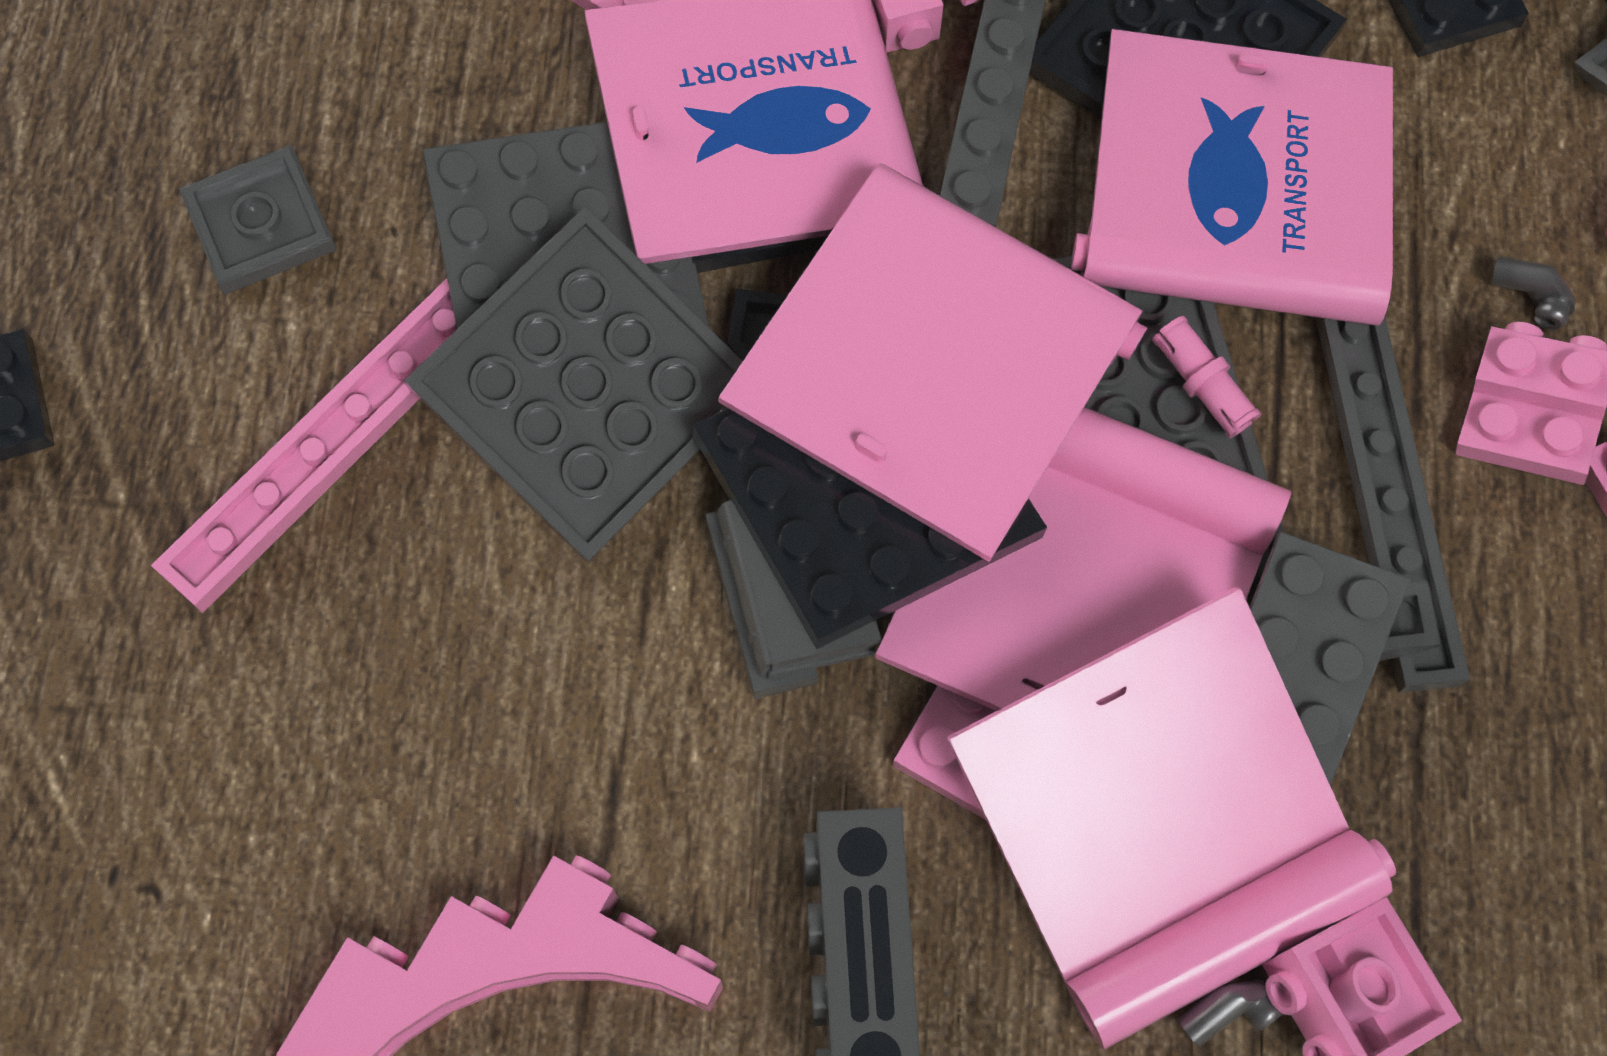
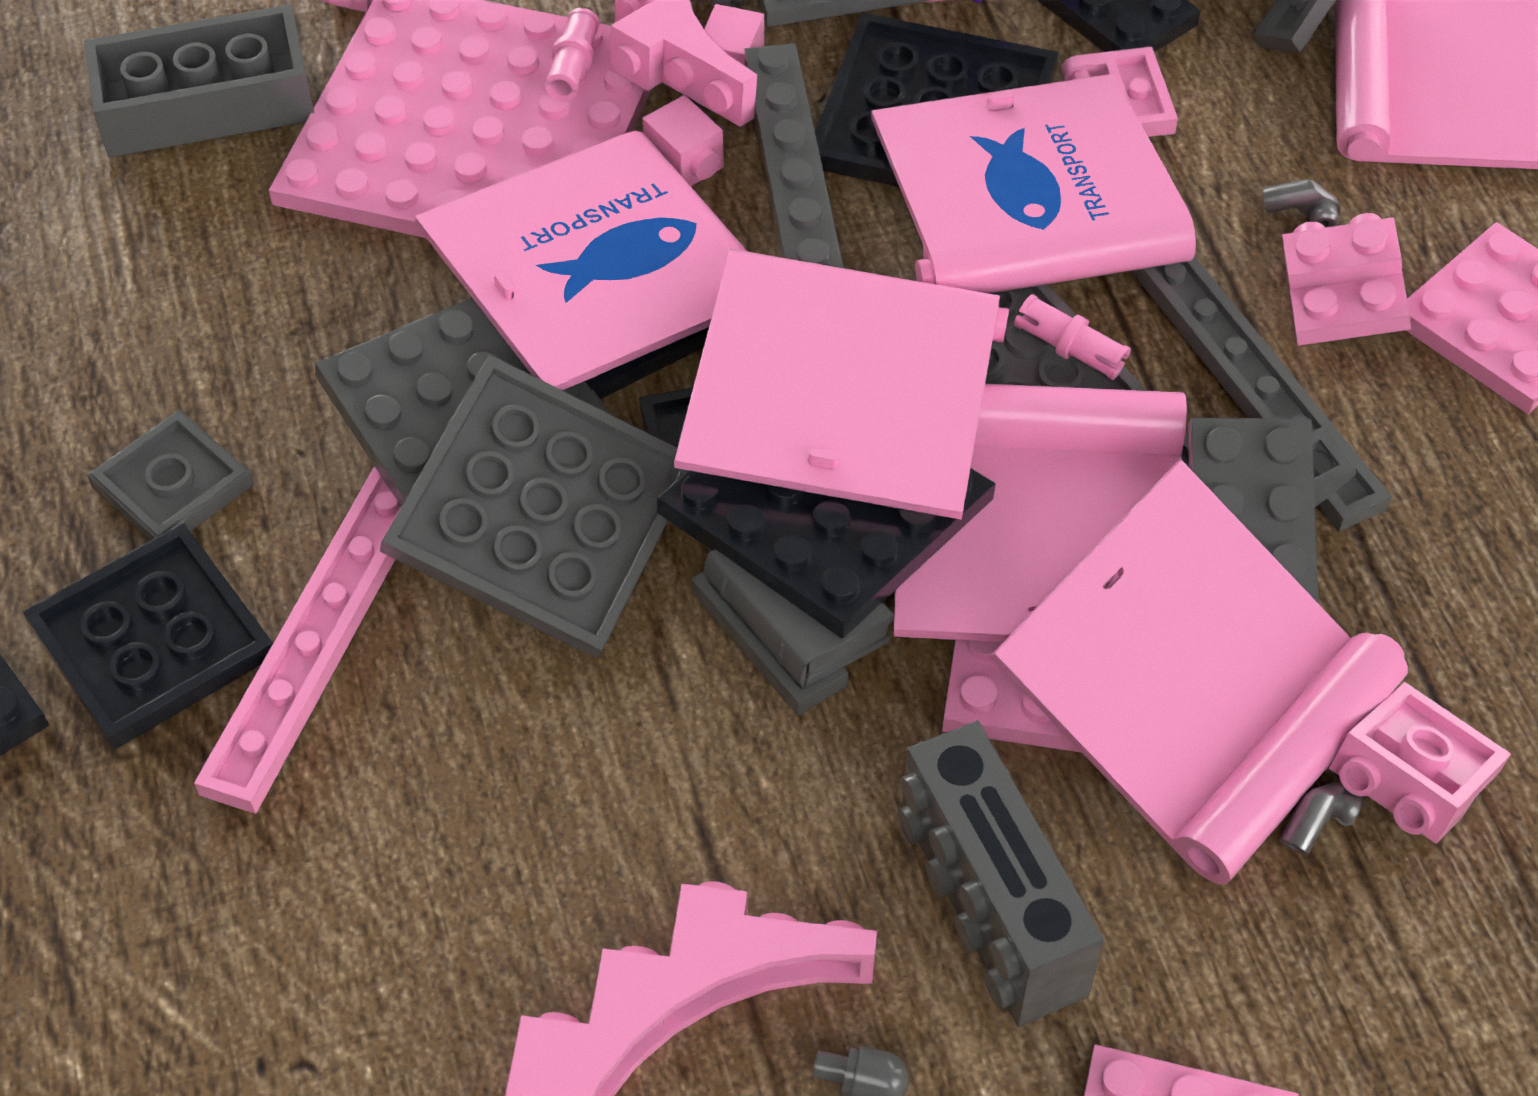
camera: 20 degrees left, 15 degrees down
(171, 386) = (148, 635): none -> black plate
(1418, 83) = (1138, 78): none -> bright pink plate

